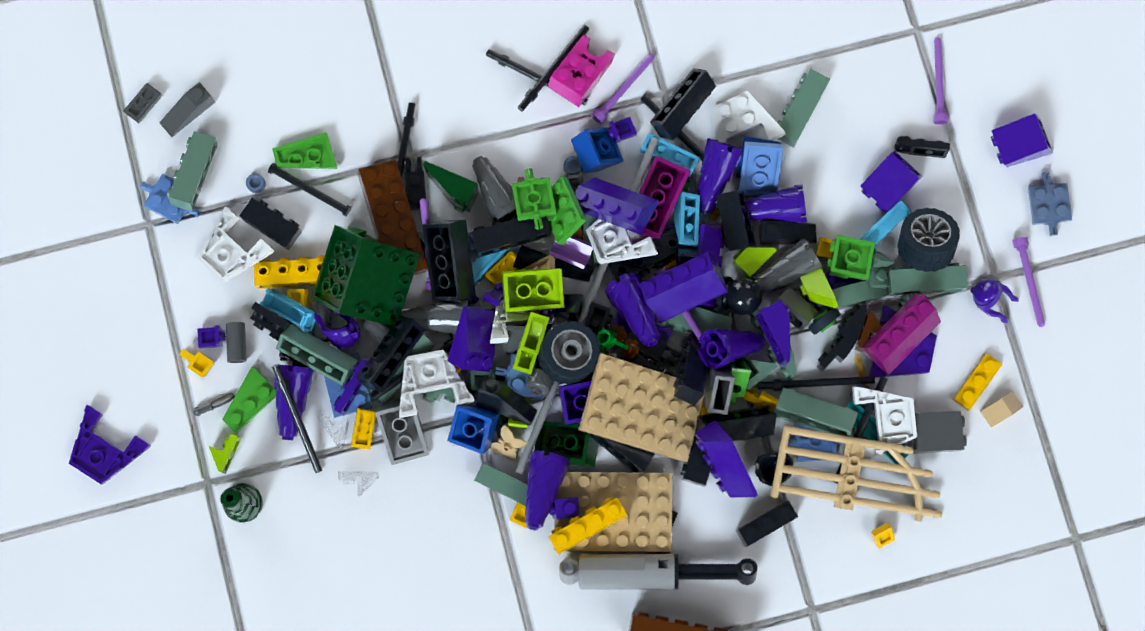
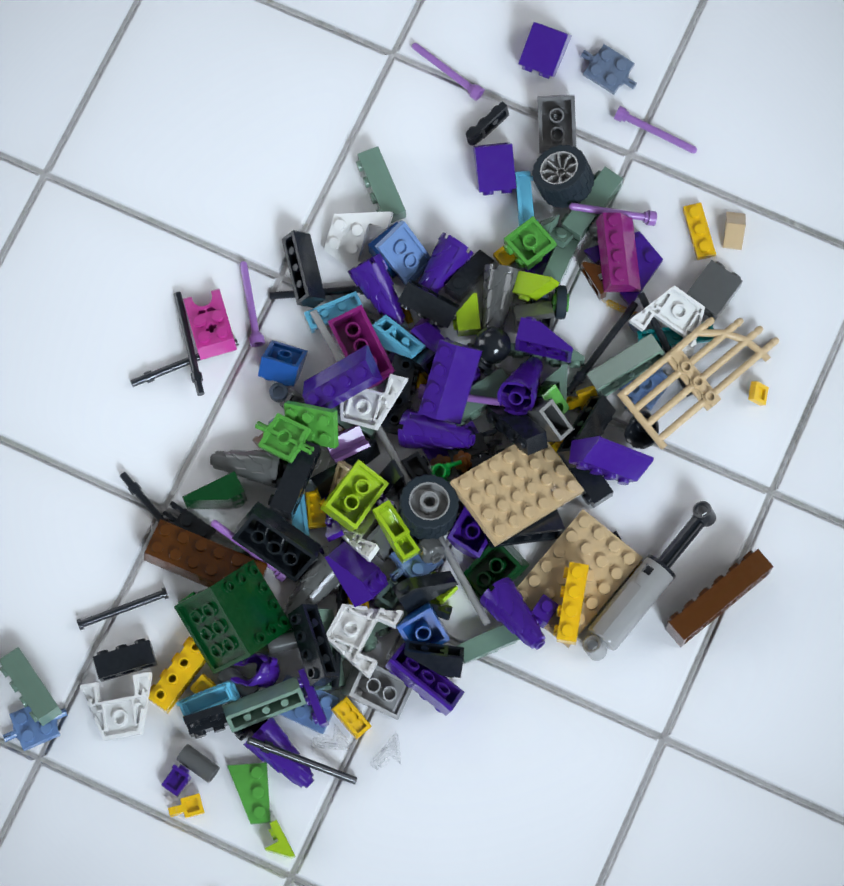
camera: 45 degrees left, 5 degrees down
(214, 404) = (232, 821): dark grey piece -> none
(242, 502) = (333, 867): dark green cone -> none
(255, 183) = (80, 647): sand blue tile -> none
(306, 153) = (92, 587): bright green wing -> none
(436, 460) = (428, 684): none -> dark purple slope
(459, 456) = (439, 658): none -> black slope
(507, 445) = (458, 615): tan piece -> none
(518, 515) = (520, 651): yellow plate -> none
(621, 130) = (282, 332): dark purple bracket -> none
(766, 523) = (679, 470): black brick -> none
(849, 334) = (585, 293): black slope -> none
(953, 333) = (648, 217): none -> medium lavender piece
(970, 198) = (556, 121): none -> flat silver slope
(986, 295) = (640, 169): dark purple hair -> none

